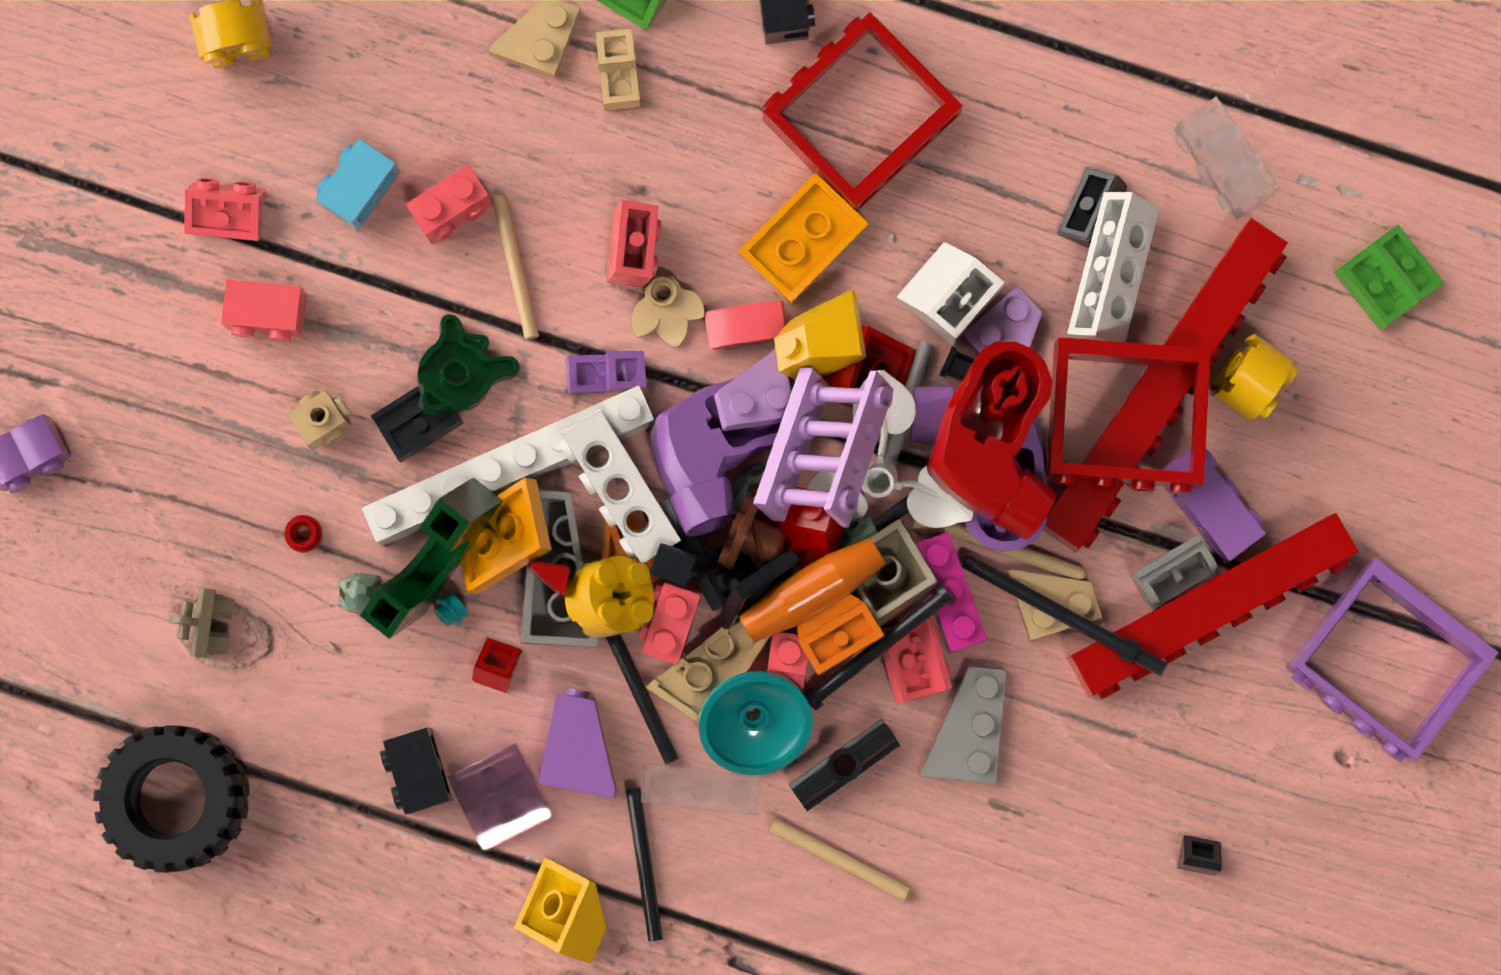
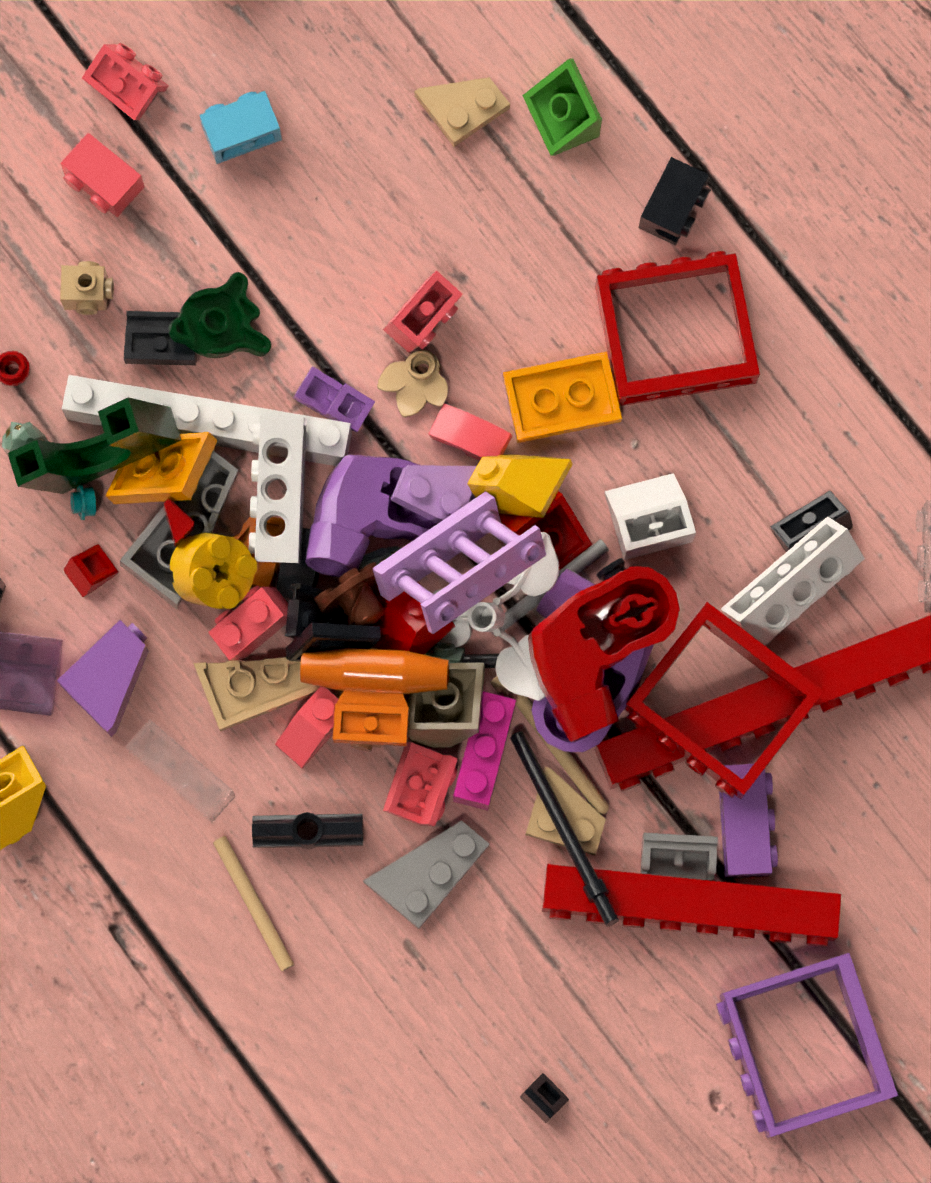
camera: 30 degrees right, 5 degrees down
(450, 204) = (301, 189): coral brick -> none
(515, 267) = (320, 271): tan bar -> none
(618, 69) = (507, 171): tan slope -> none
(642, 698) = (186, 671): black bar -> none
(644, 864) = (96, 805): black bar -> none
(673, 564) = (278, 577): black slope -> none
(759, 740) = (248, 764): teal dish -> none
(942, 597) = (395, 754): black bar -> none
(1009, 320) = (685, 569): lavender wing -> none
(1253, 379) = (846, 743): yellow brick -> none

